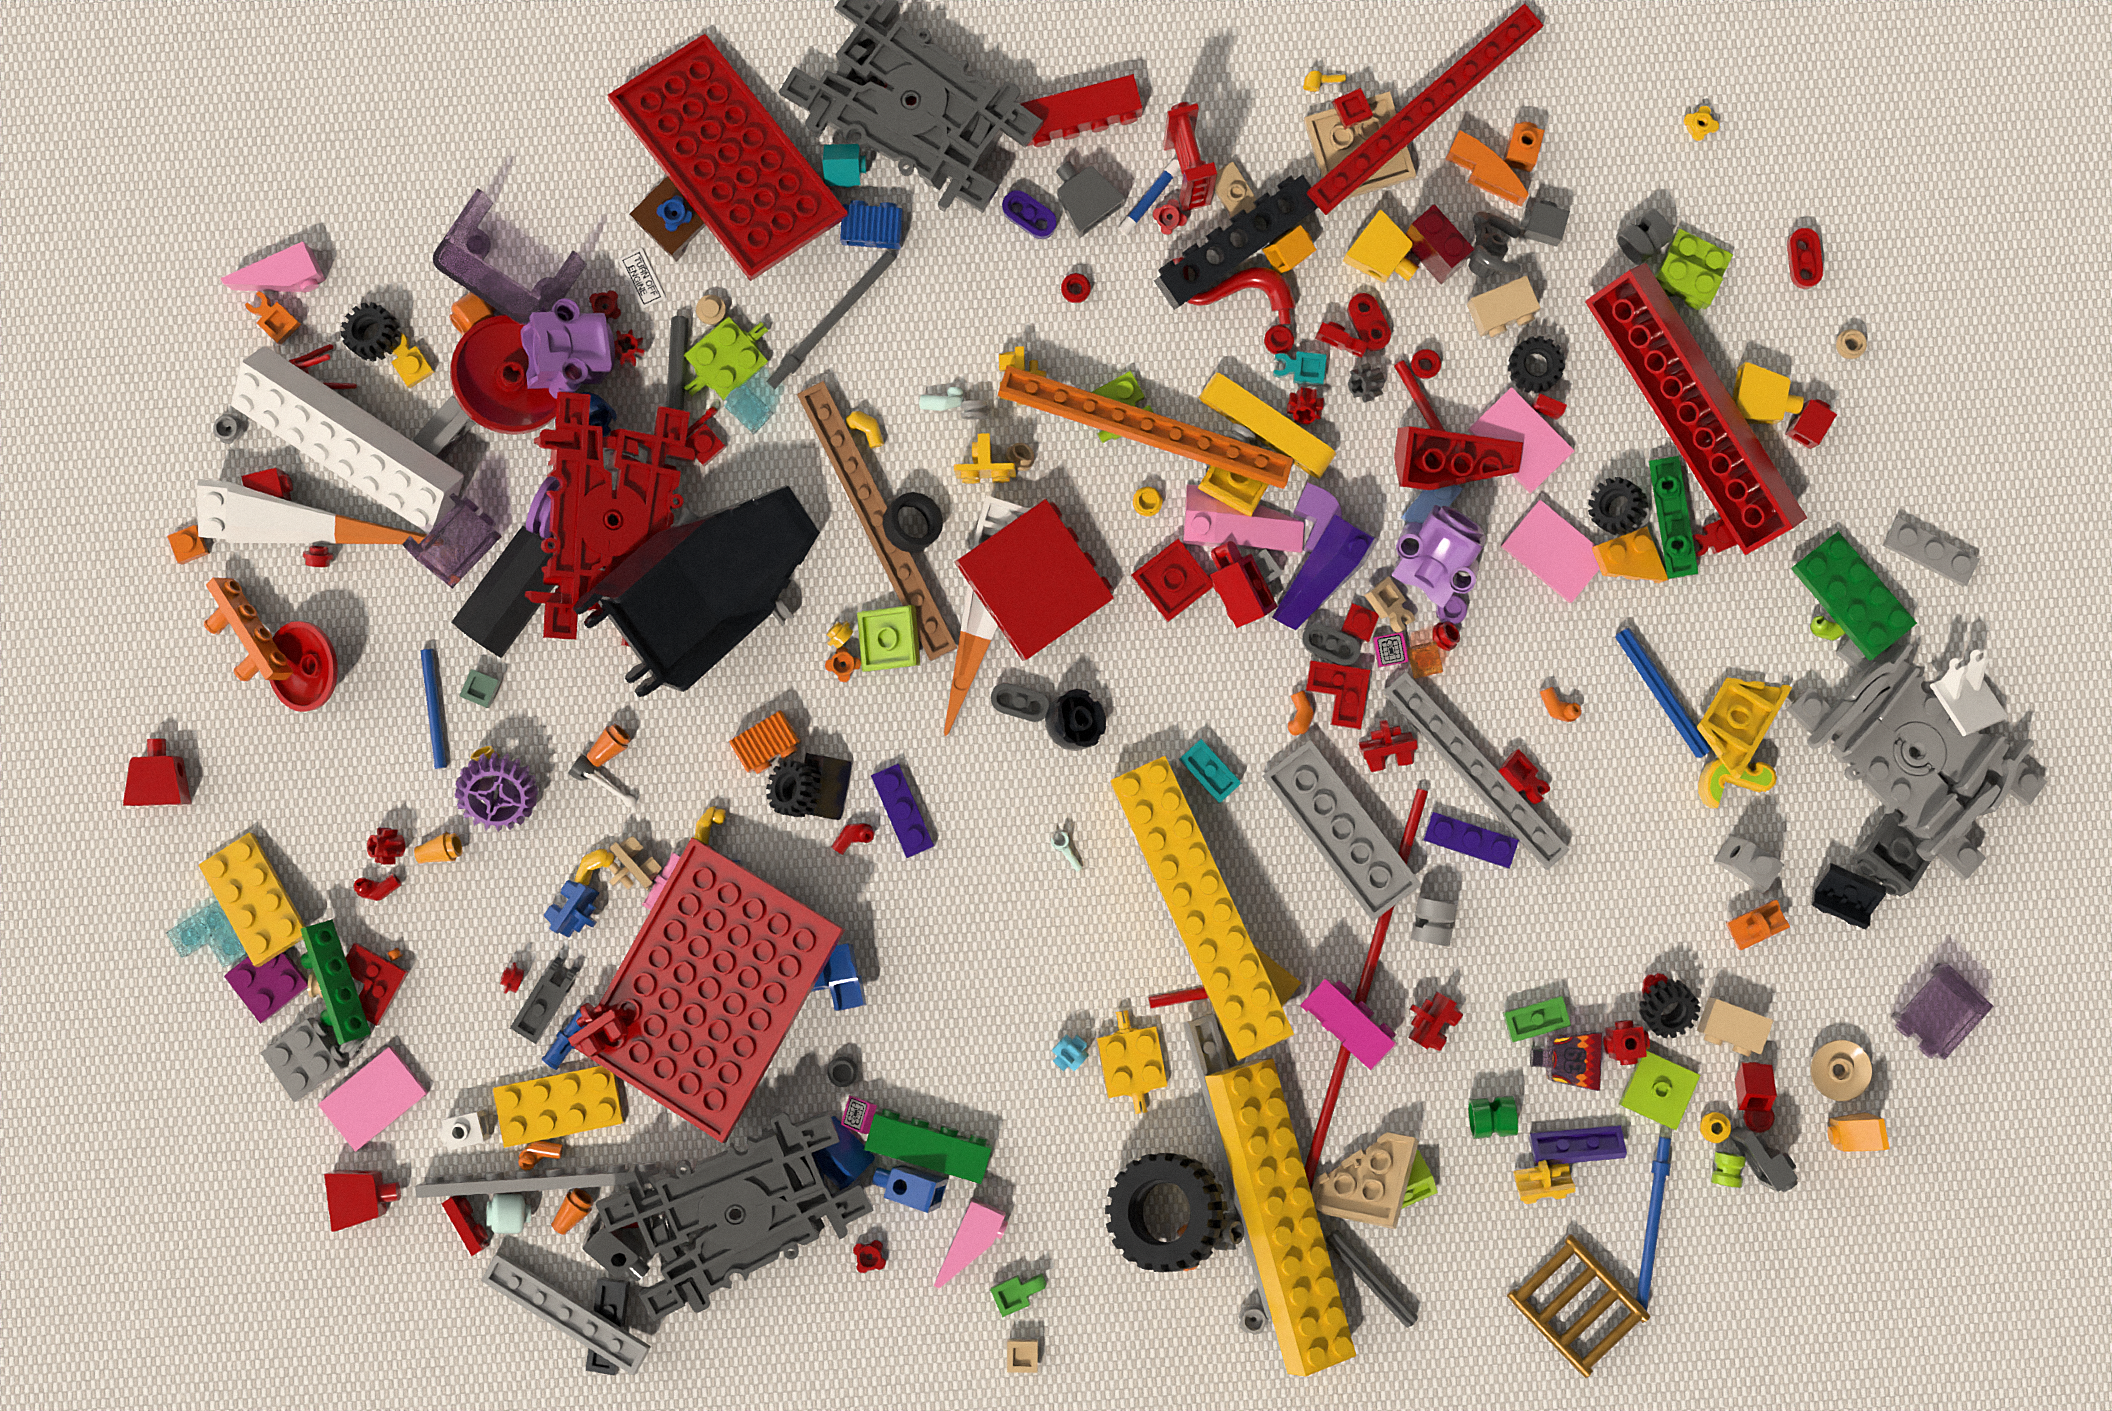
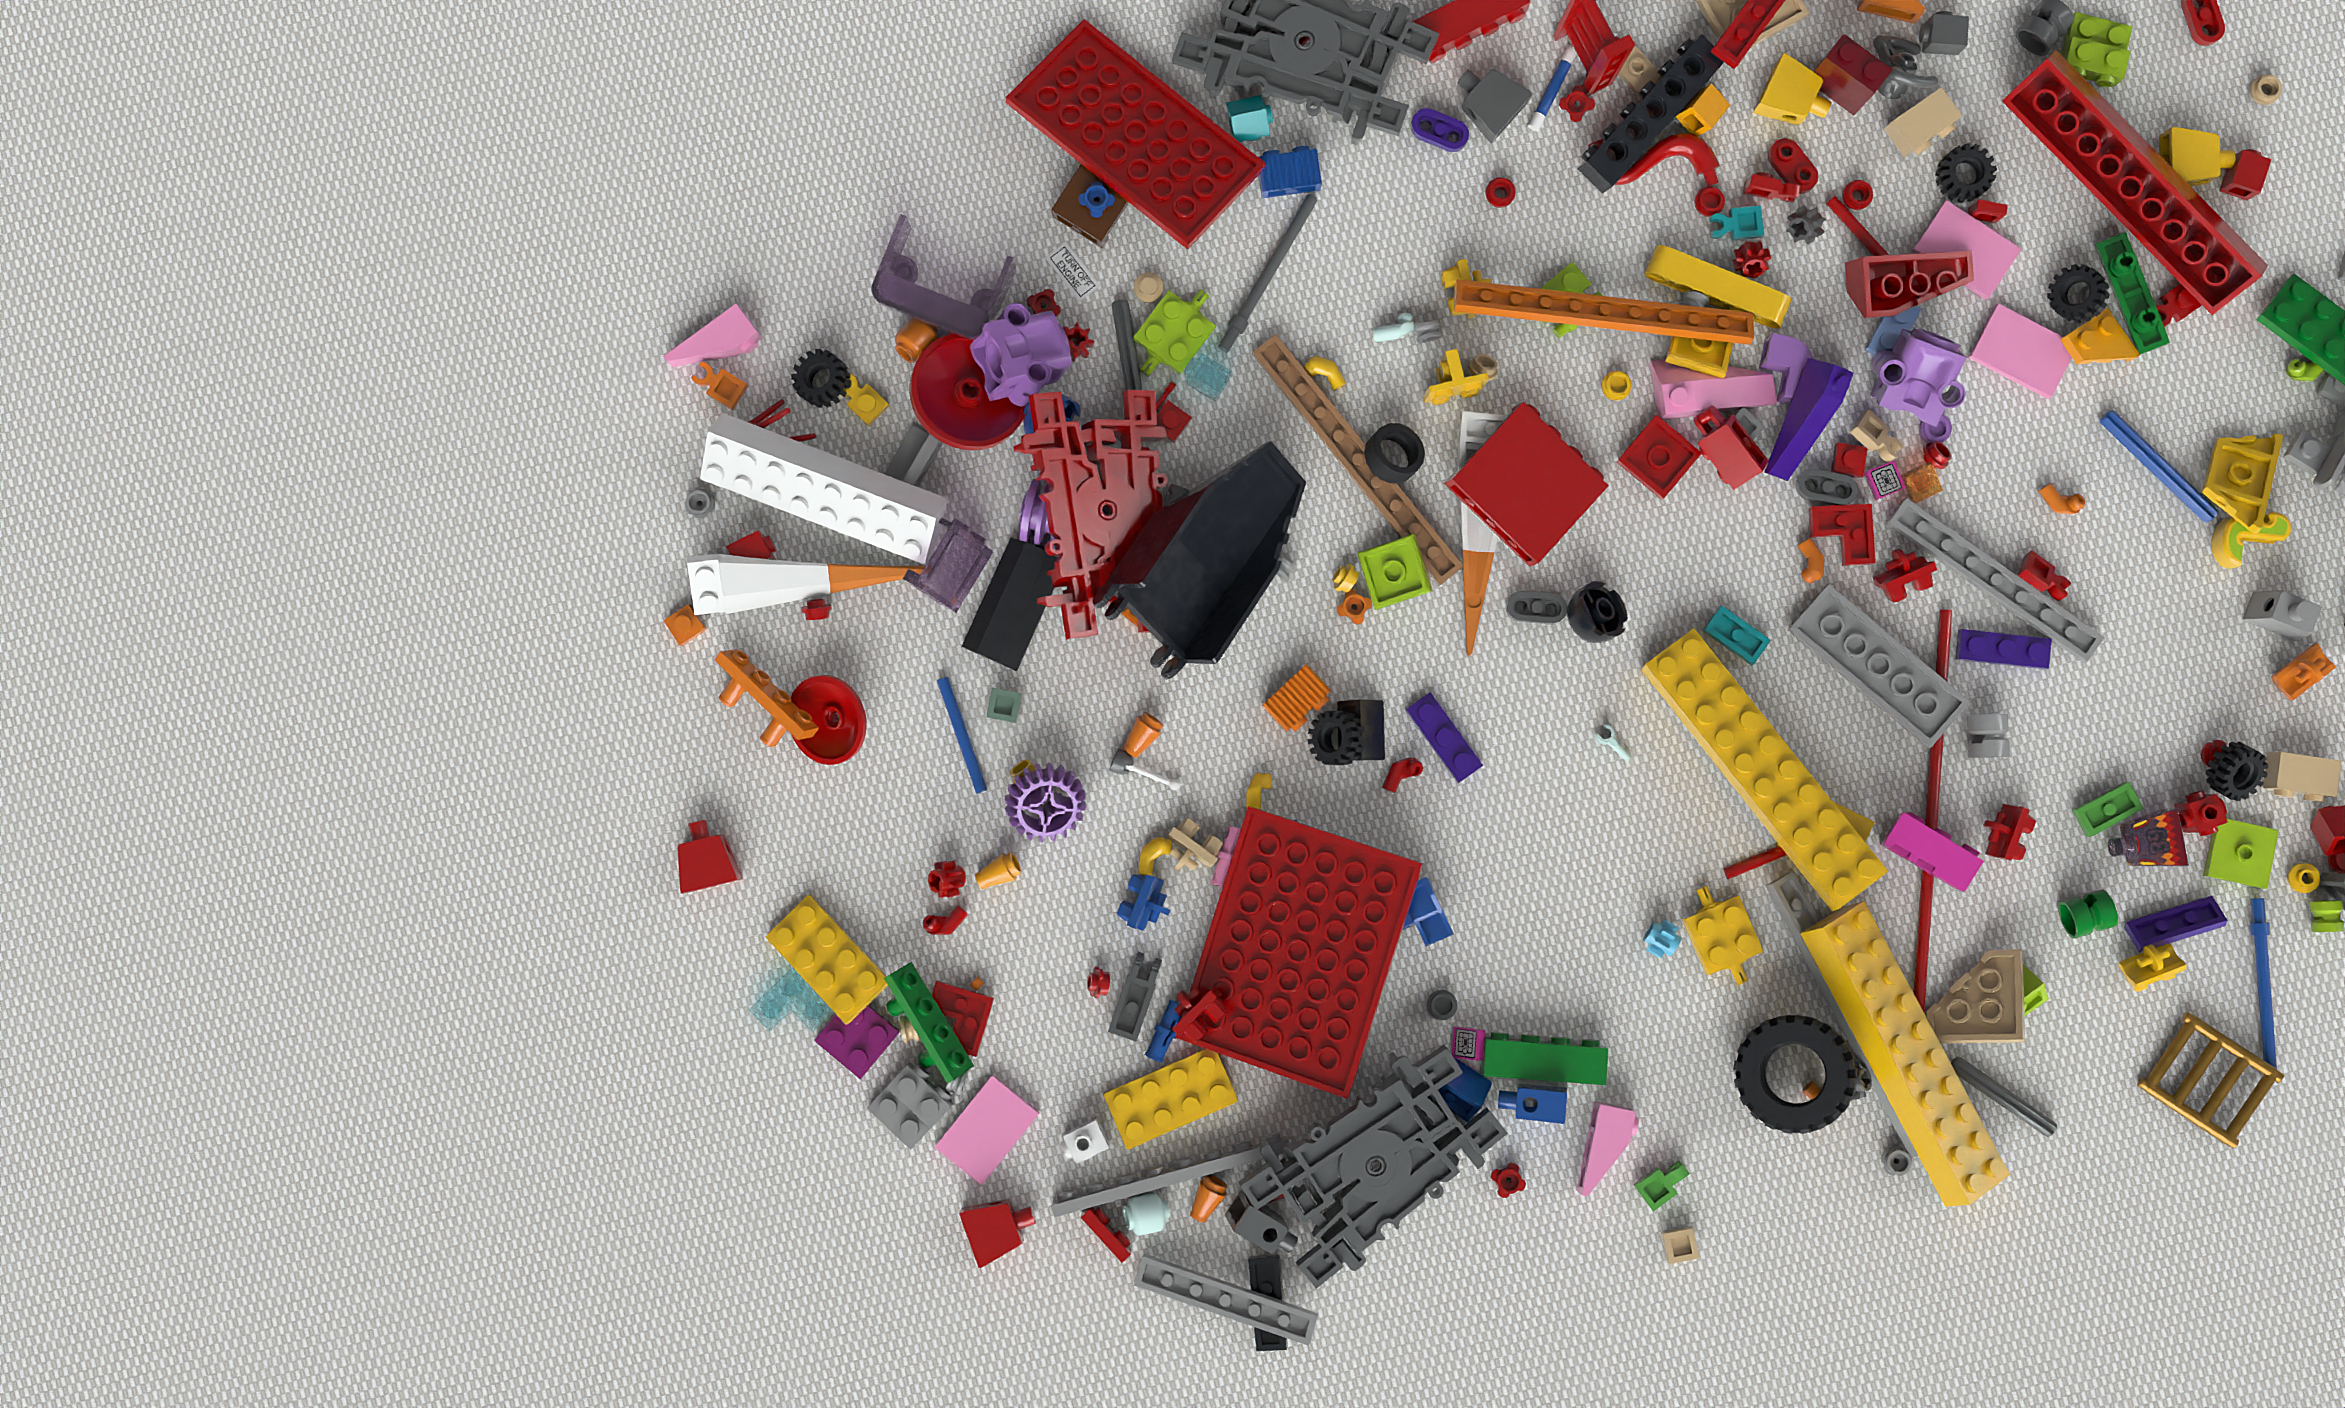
camera: 15 degrees left, 0 degrees up
(537, 1151) = (1160, 1146): orange arm -> none

